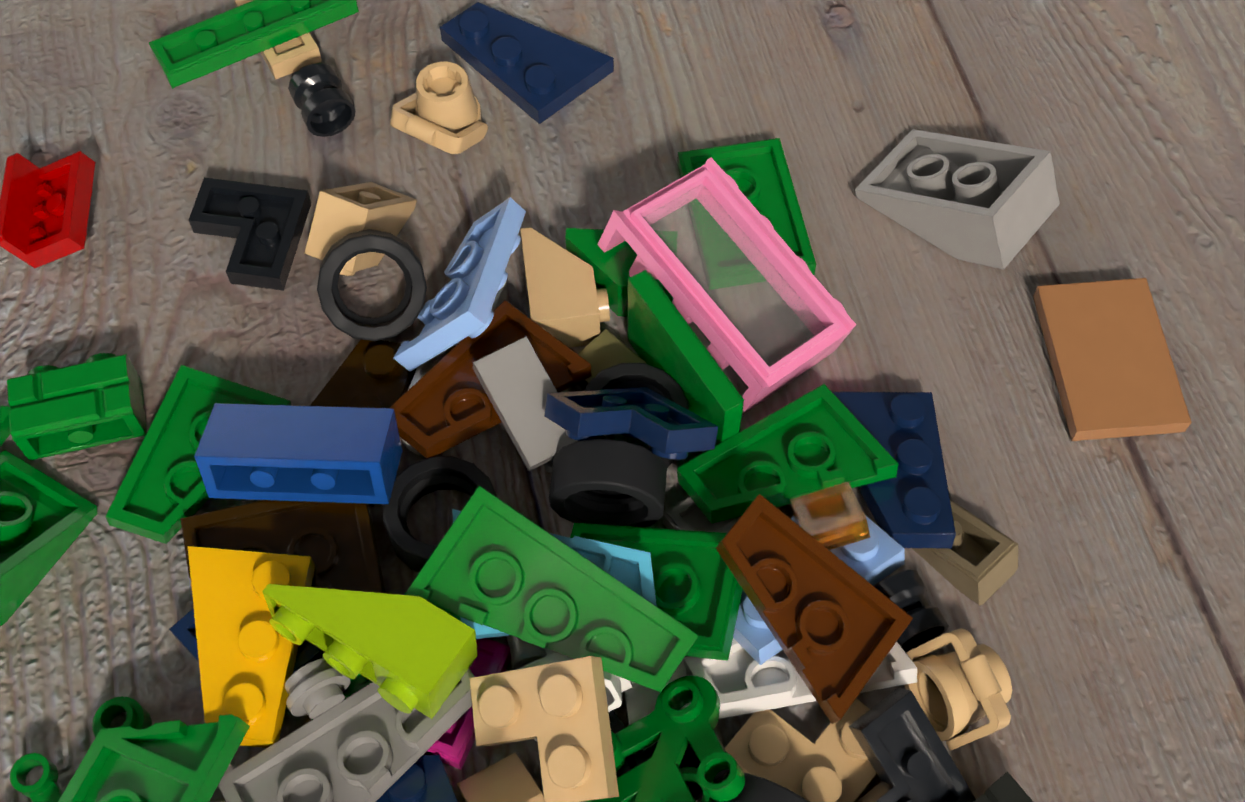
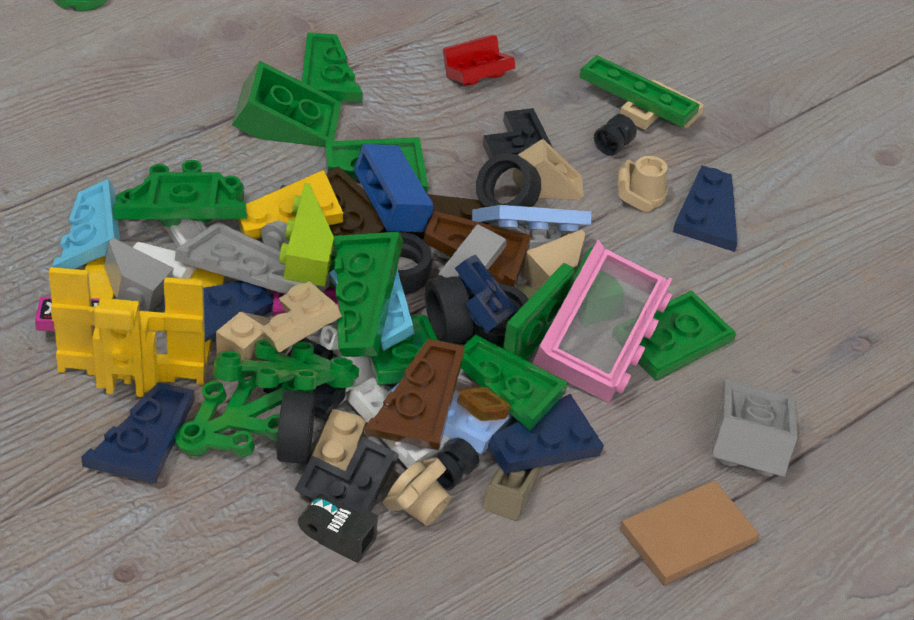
camera: 60 degrees right, 15 degrees down
(76, 406) = (376, 112): green brick -> none

